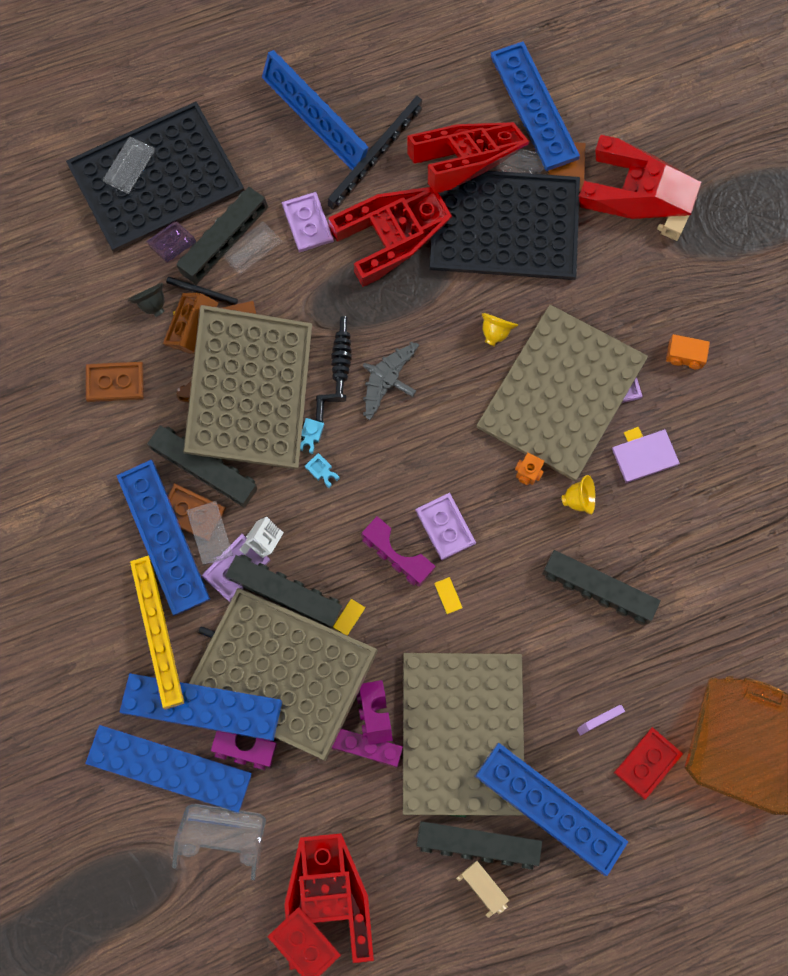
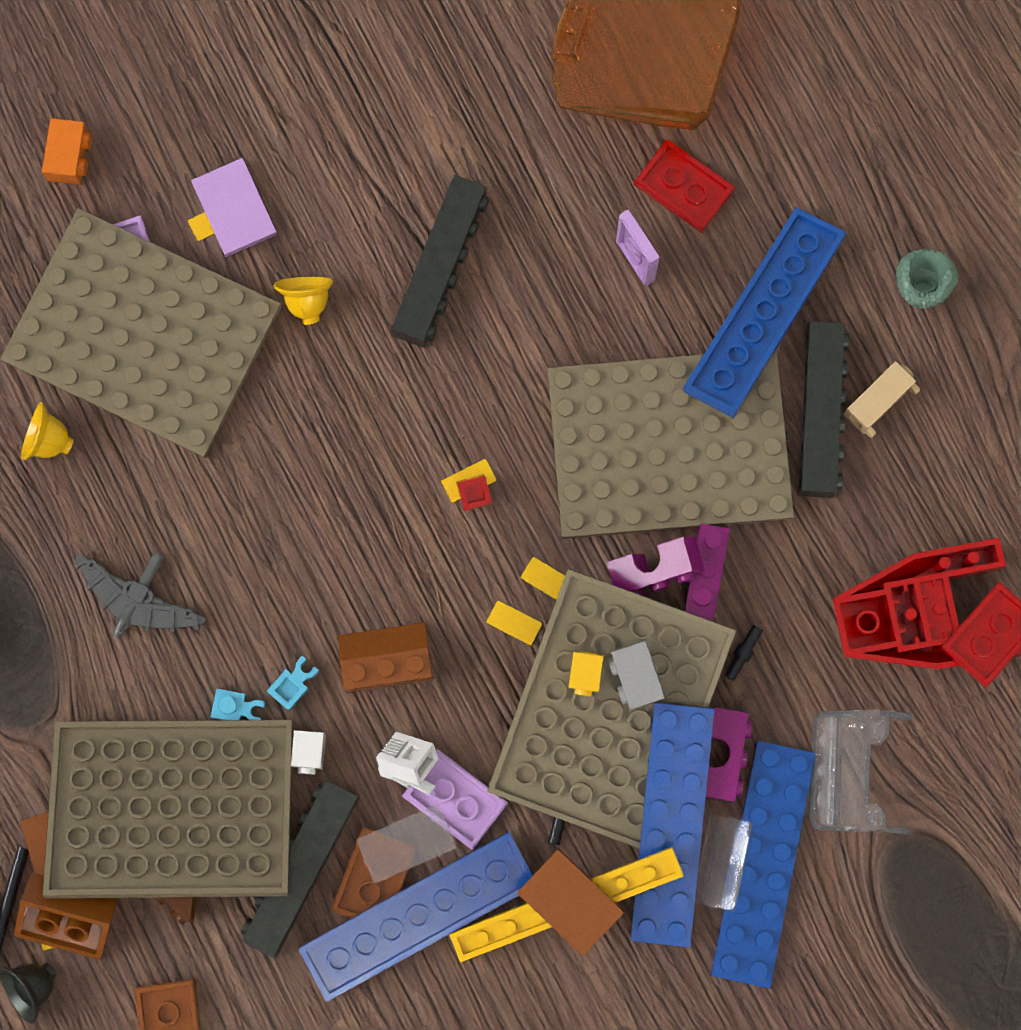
camera: 90 degrees left, 5 degrees up
(156, 632) = (570, 902): none -> dark orange tile
(172, 739) = (722, 862): none -> clear piece
(276, 476) = (308, 751): none -> white brick
(283, 591) = (488, 720): pearl dark grey brick -> none
(300, 688) = (636, 674): none -> light grey brick
(305, 654) = (586, 672): none -> yellow brick
(312, 769) = (743, 653): none -> black bar
(333, 529) = (385, 658): none -> dark orange slope
(341, 362) = (128, 671): black piece -> none
(379, 638) = (543, 577): none -> yellow sticker
(415, 568) = (389, 587): magenta arch -> none
(438, 596) = (474, 492): none -> red plate
(445, 526) = (365, 491): lavender tile -> none
(529, 469) = (263, 365): orange brick -> none
(569, 931) = (926, 277): none -> sand green hair

